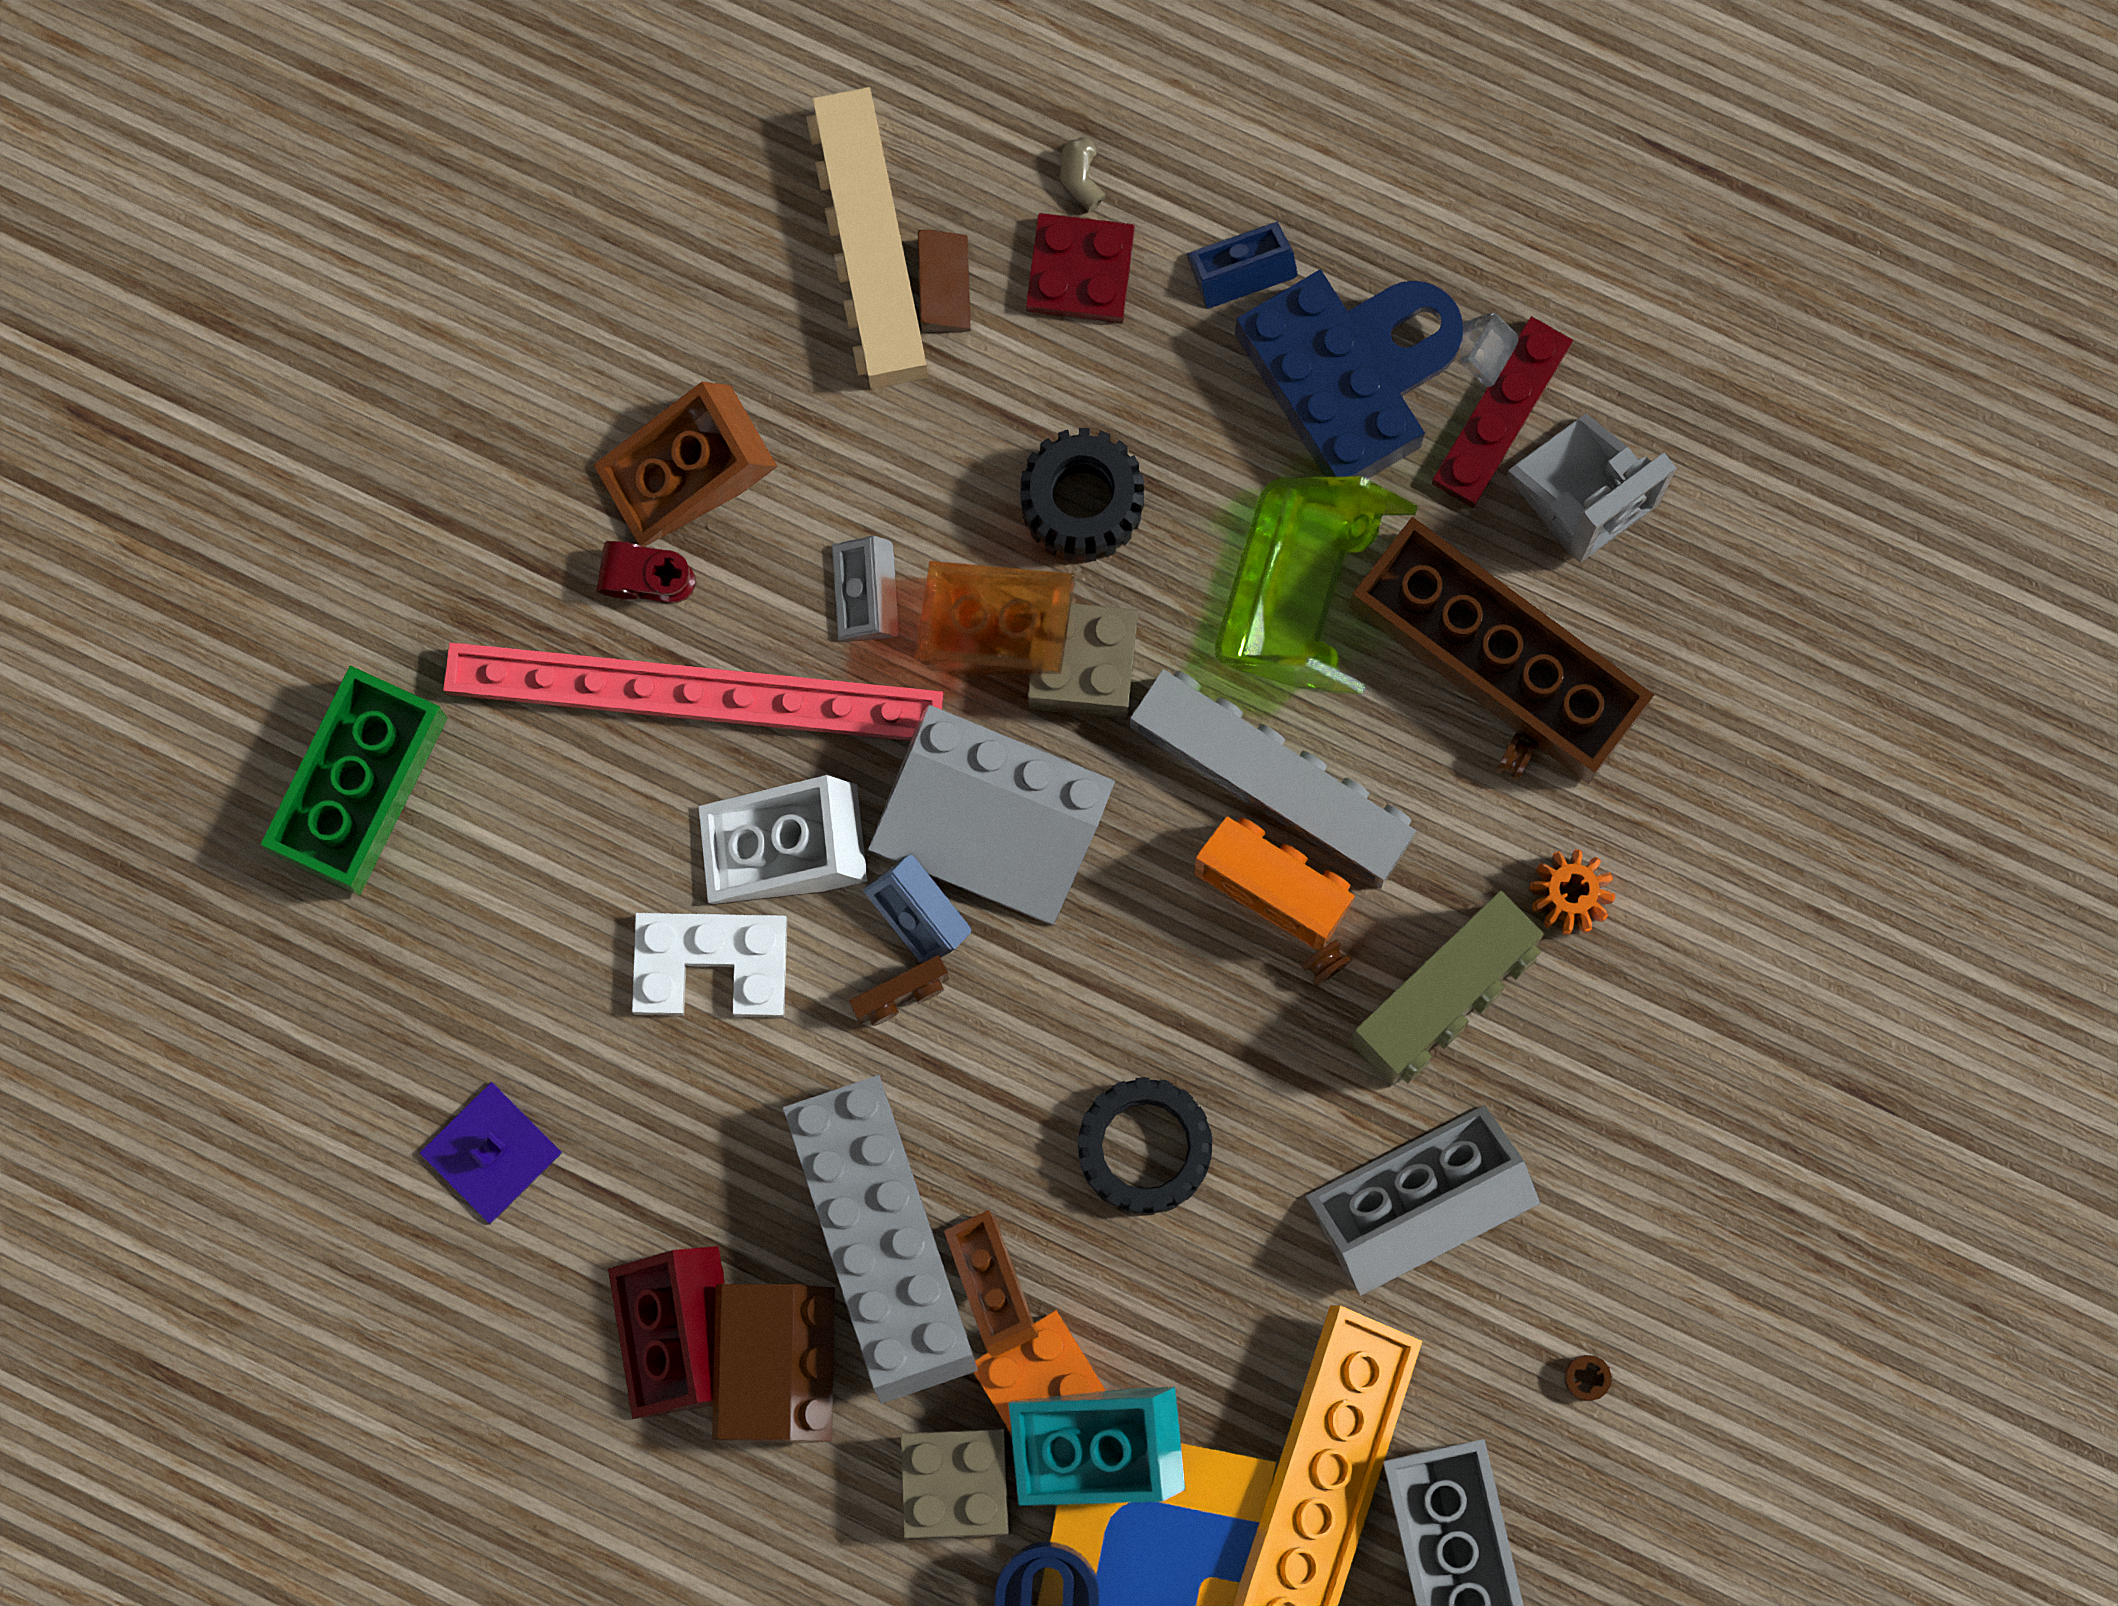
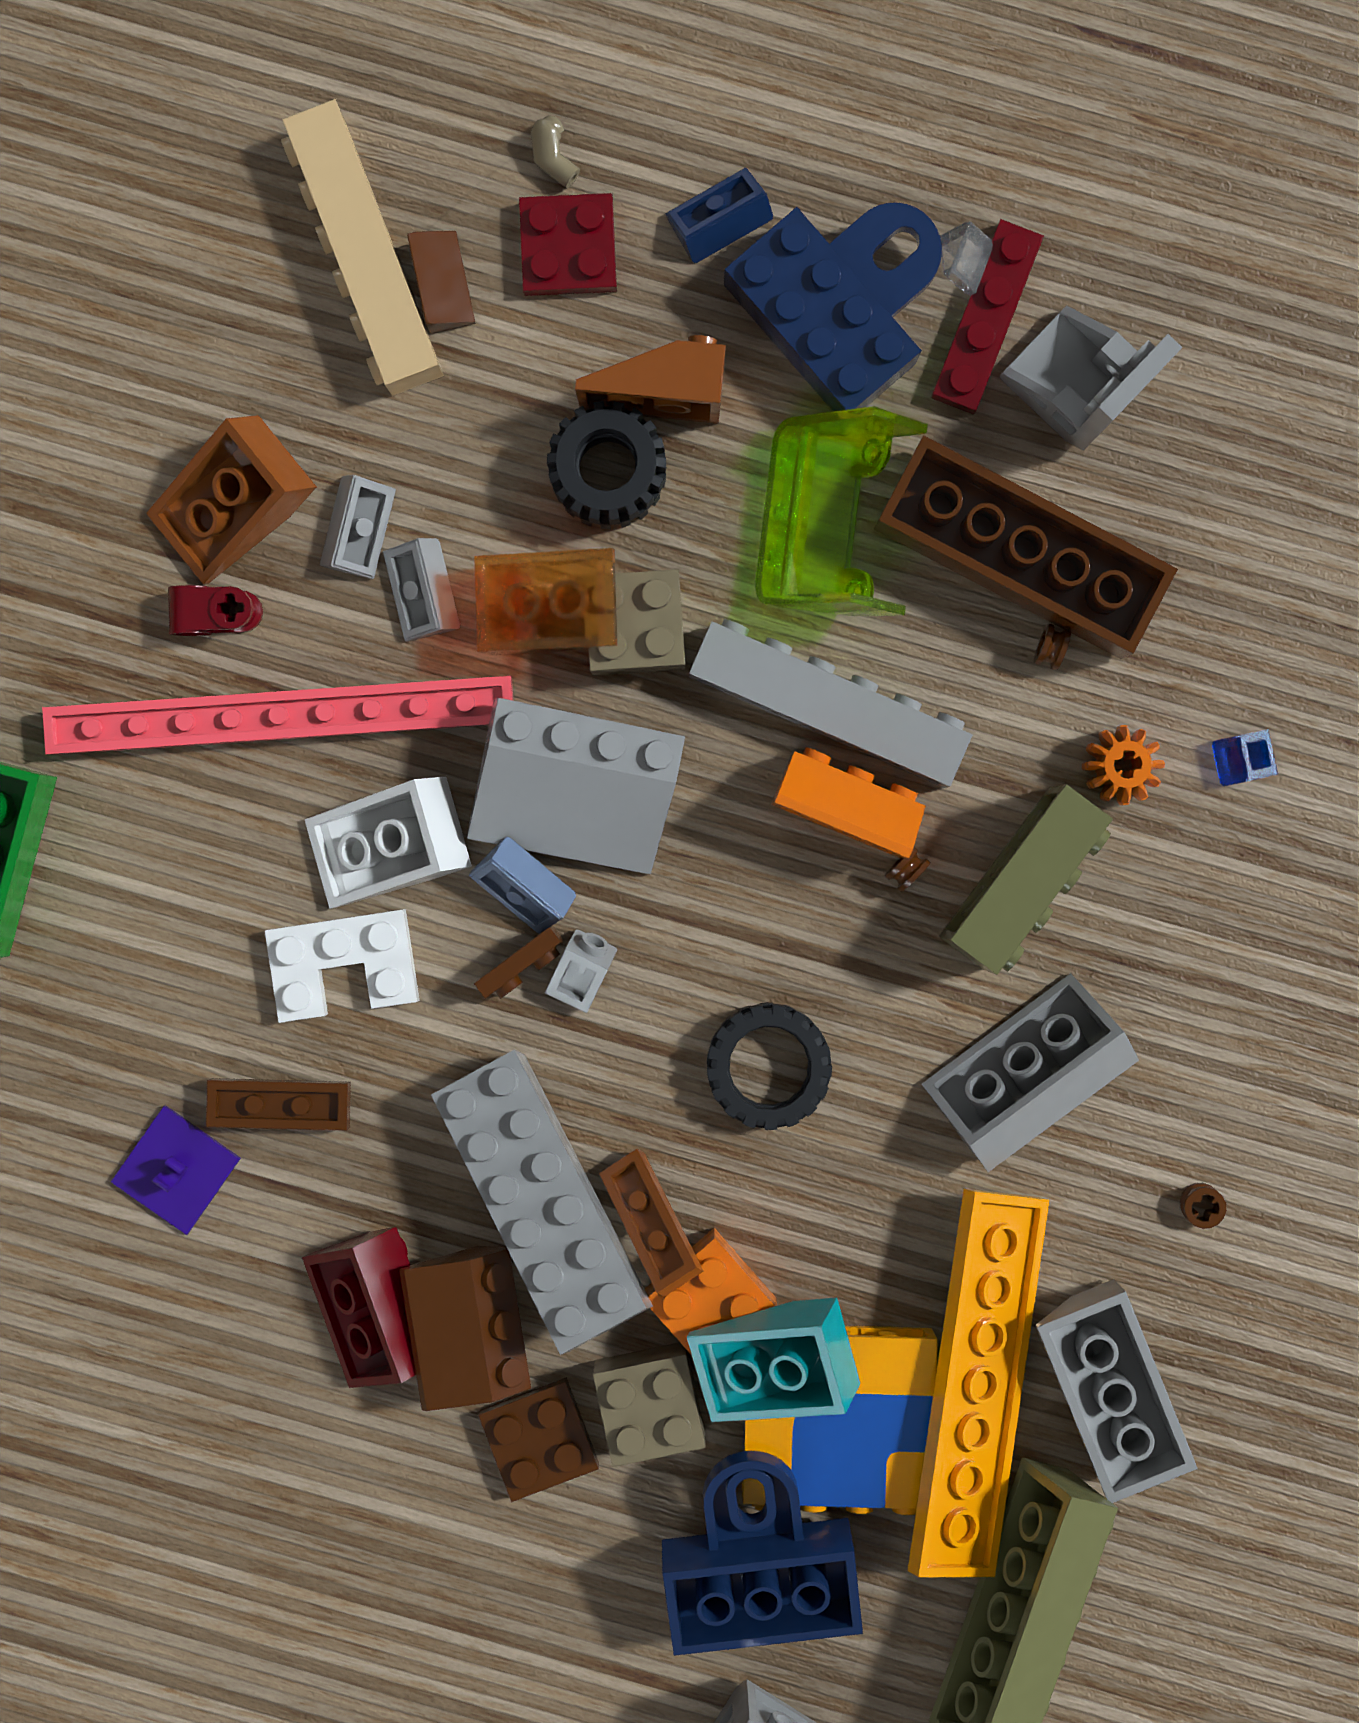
camera: 15 degrees left, 10 degrees up
(615, 1098) = (278, 1104): none -> reddish brown plate
(810, 514) = (357, 526): none -> light grey slope
(827, 1510) = (538, 1439): none -> reddish brown plate
(962, 1011) = (581, 970): none -> light grey bracket
(1155, 421) = (666, 383): none -> dark orange slope
(1704, 908) = (1244, 757): none -> clear blue slope

